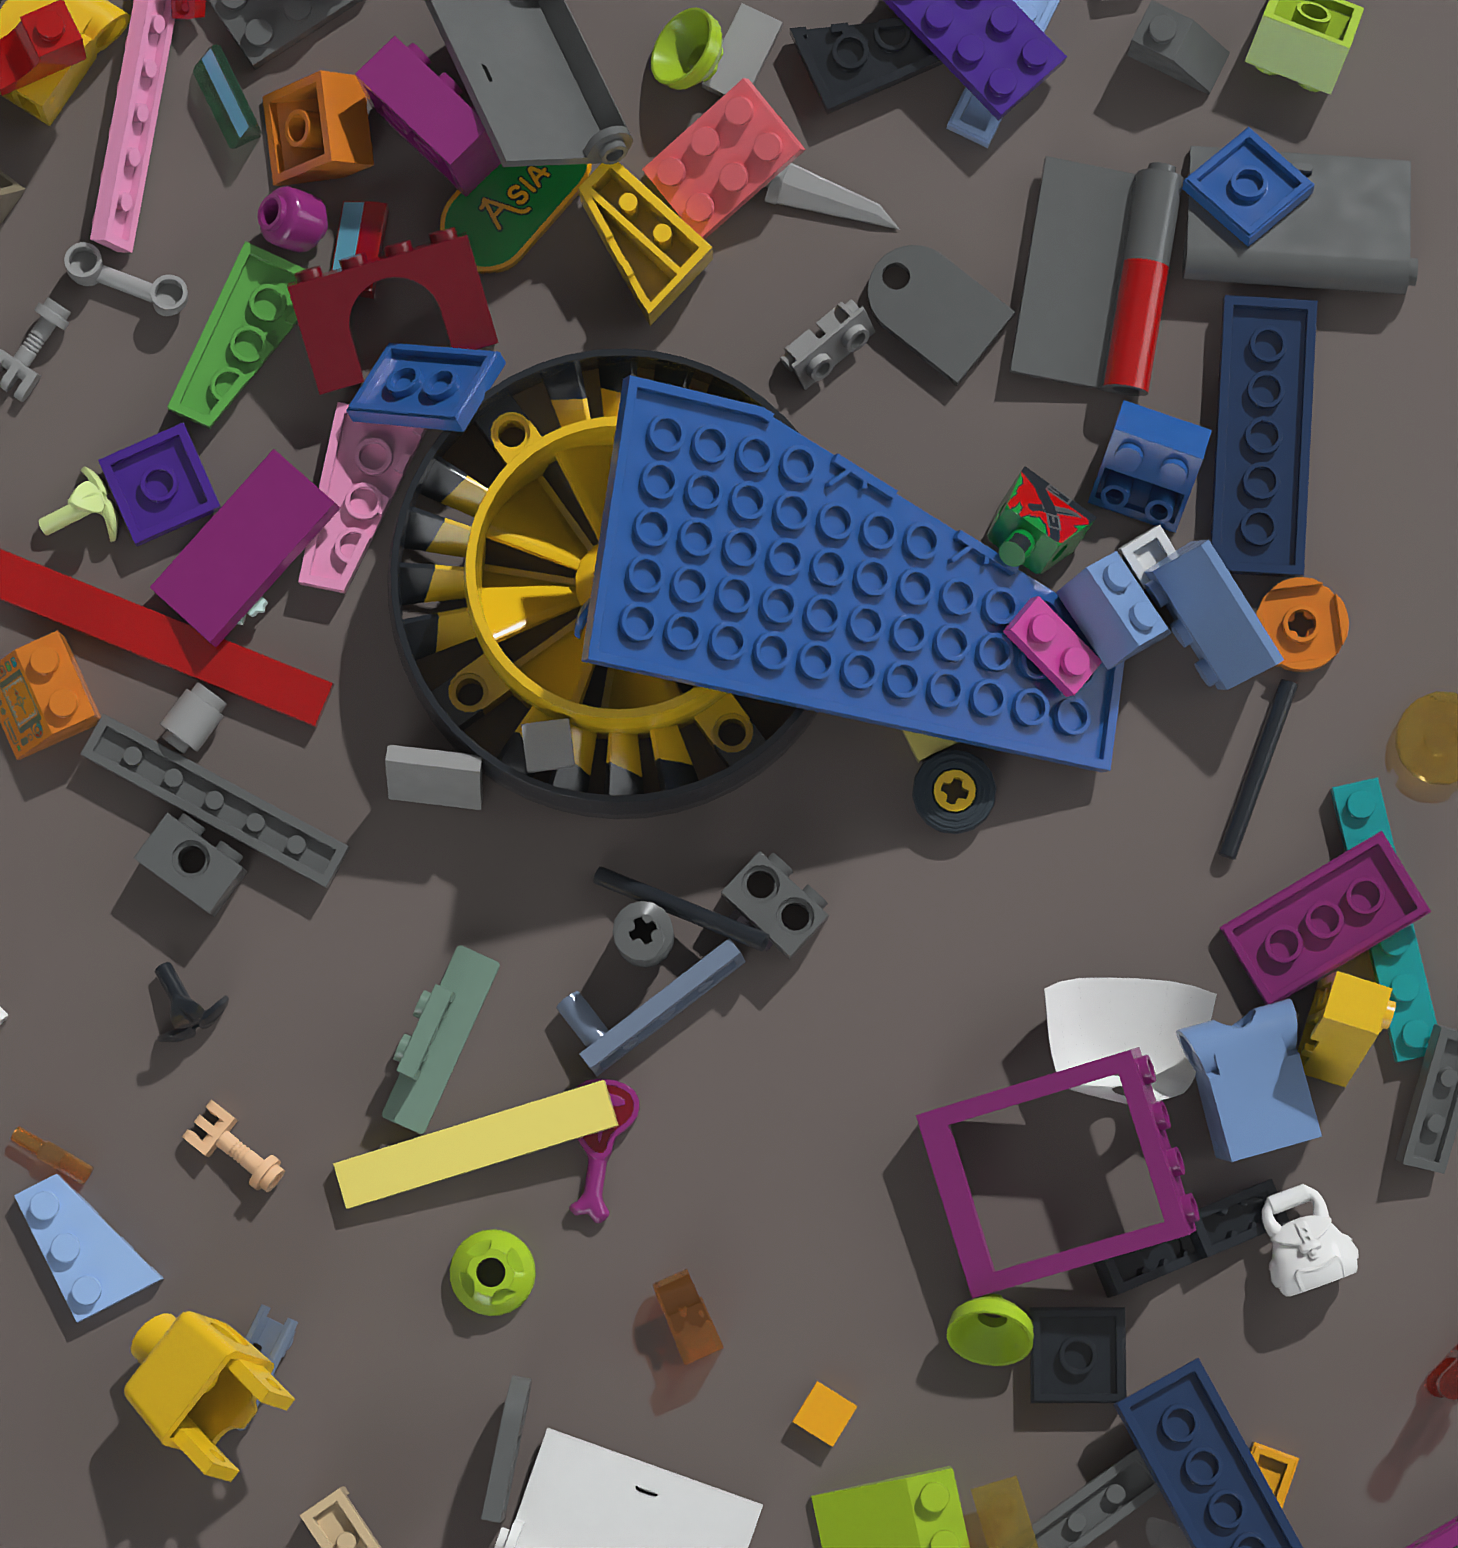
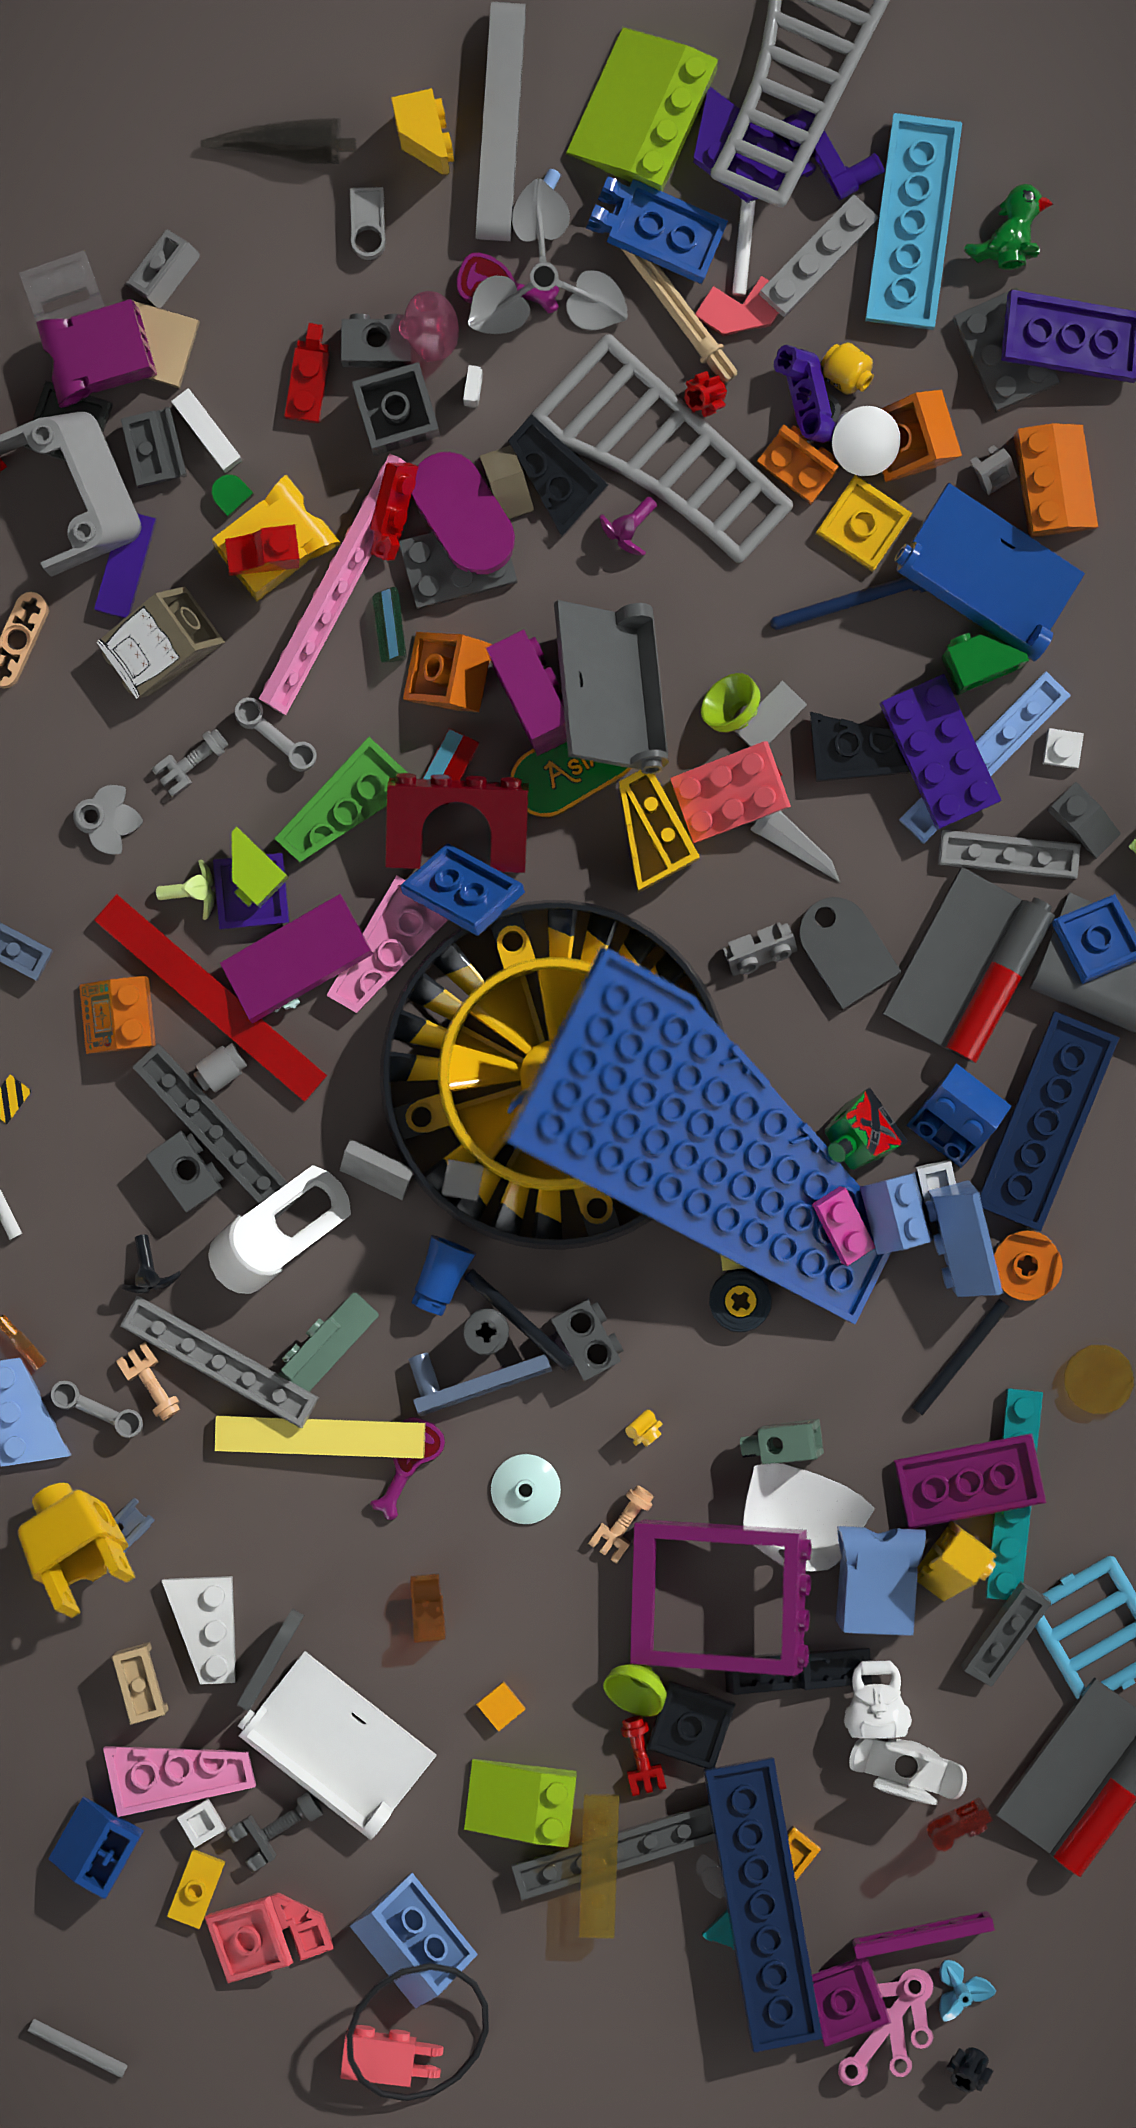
camera: 20 degrees right, 5 degrees up
(134, 1204) = (67, 1396): none -> light grey bar
(154, 453) = (253, 871): none -> lime slope
(292, 219) = (408, 732): magenta head -> none
(313, 928) = (253, 1247): none -> white piece
(315, 1091) = (219, 1361): none -> light grey tile
(410, 1437) = (207, 1624): none -> white wing
(518, 1266) = (315, 1515): lime piece -> none
(562, 885) = (441, 1274): none -> blue plant
(762, 1150) = (525, 1470): none -> light aqua dish
(887, 994) = (644, 1429): none -> yellow plate
(911, 1086) = (639, 1499): none -> light nougat hinge
(1006, 1383) = (634, 1728): none -> red hinge
(1092, 942) = (800, 1442): none -> sand green torso
(1099, 124) = (1009, 854): none -> light grey tile
(1408, 1310) = (932, 1771): none -> white piece

